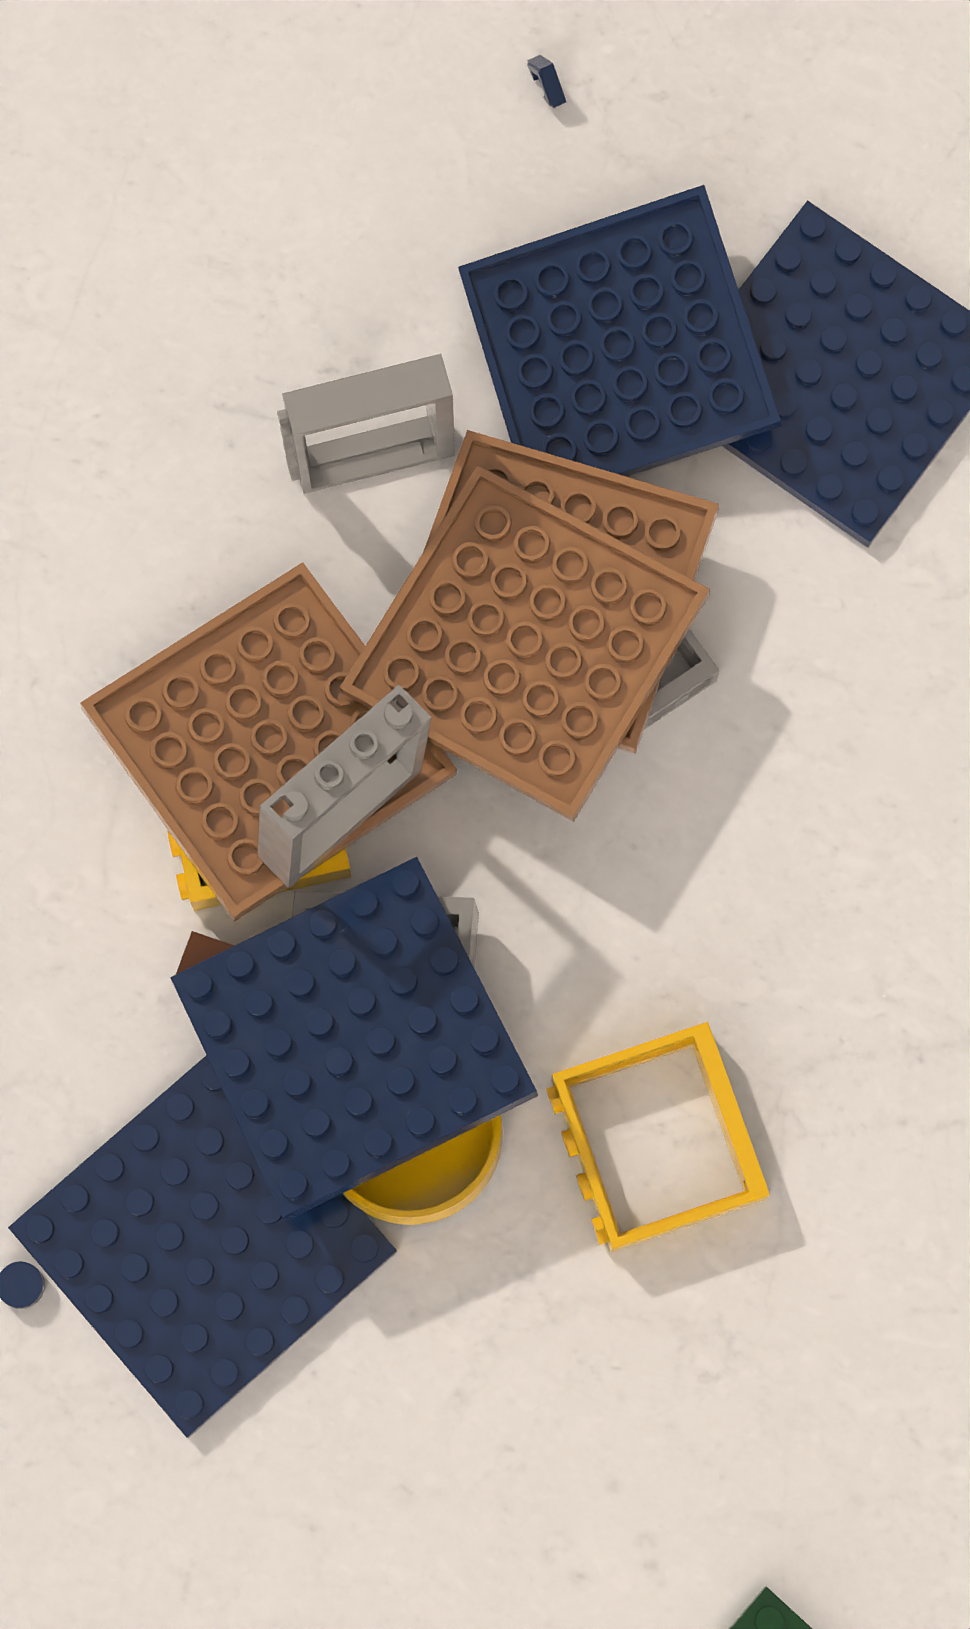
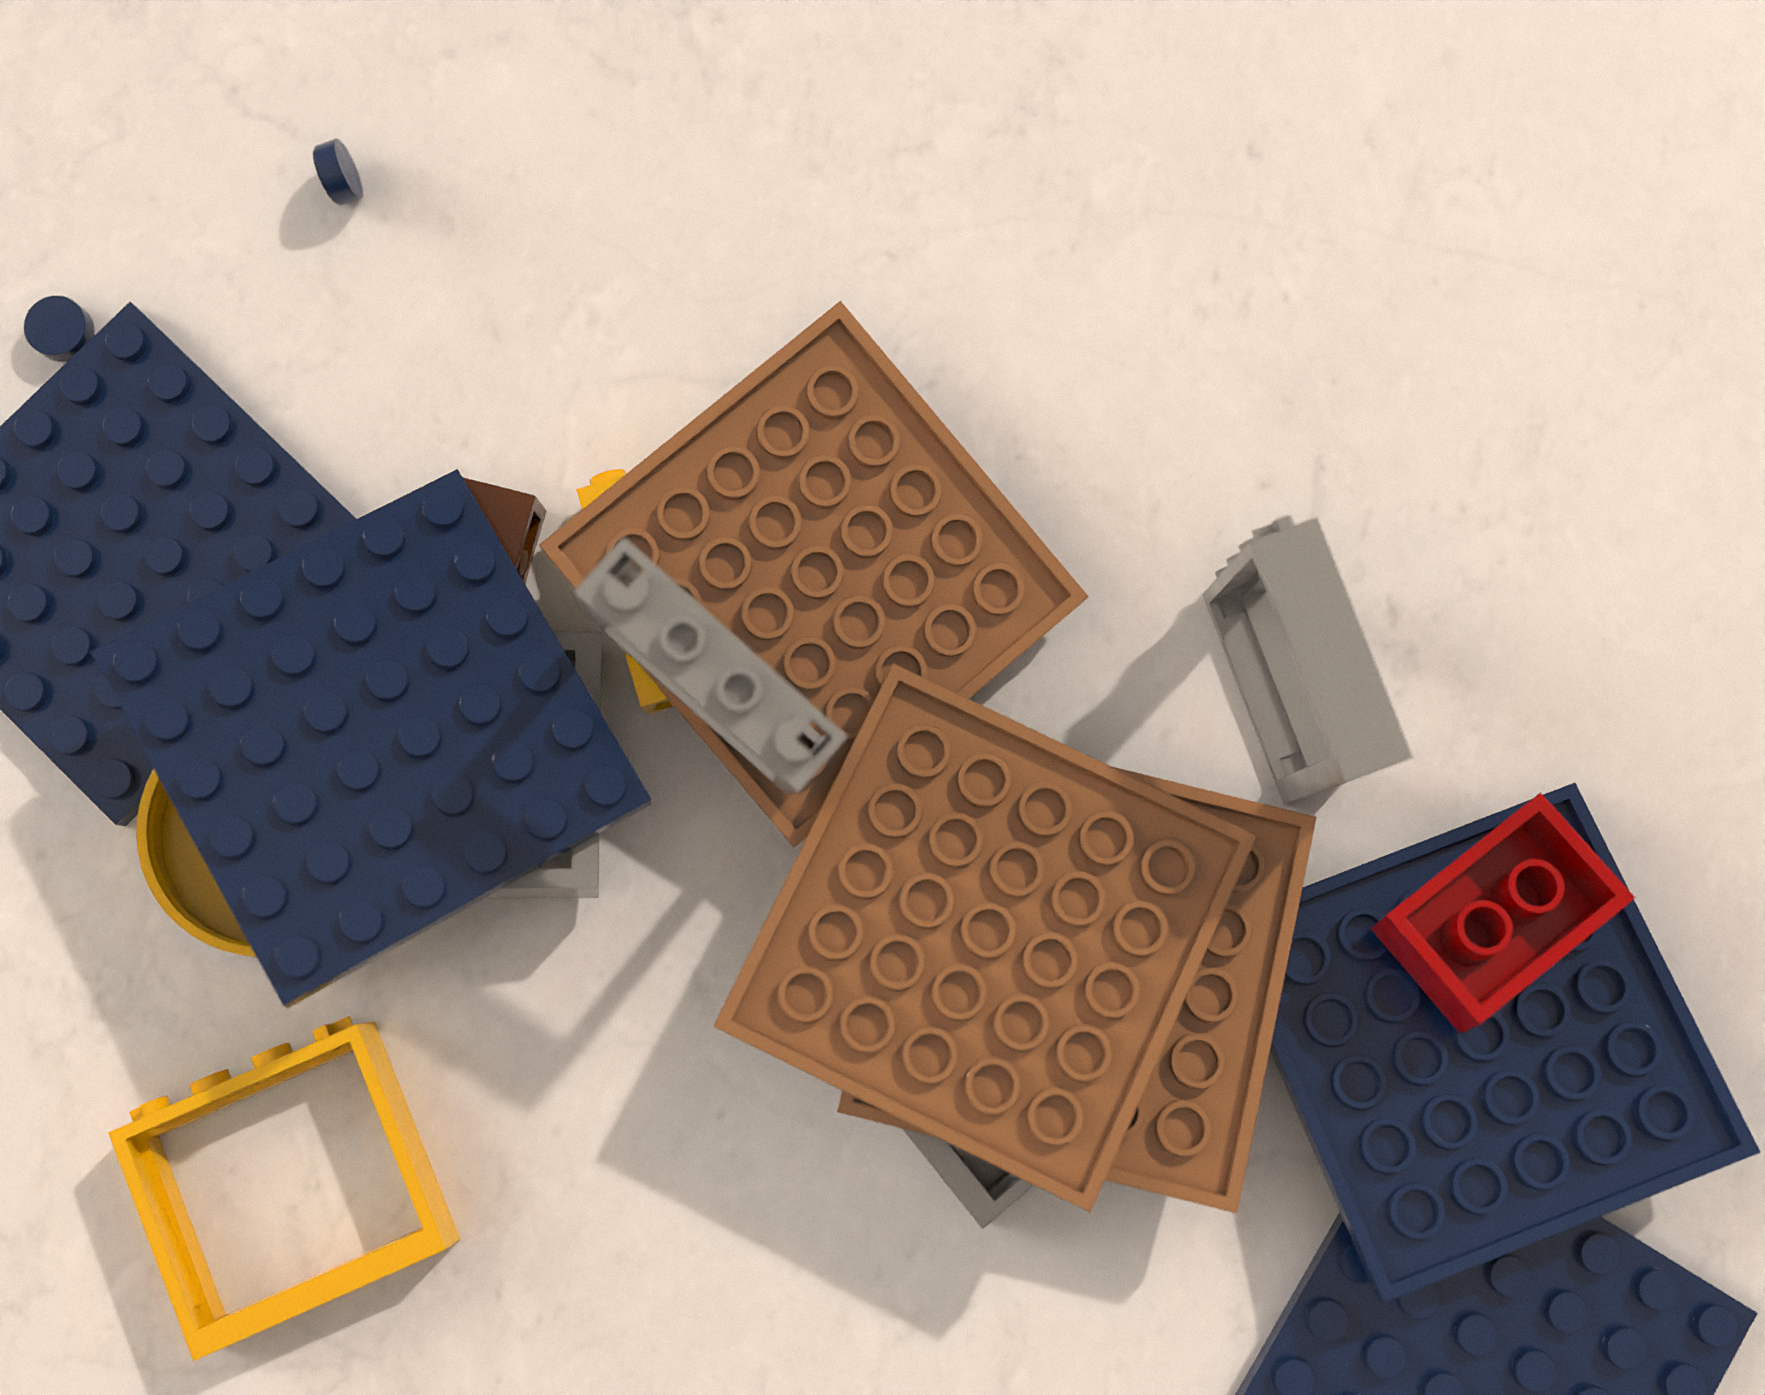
camera: 85 degrees right, 5 degrees up
(541, 321) = (1502, 914): none -> red brick

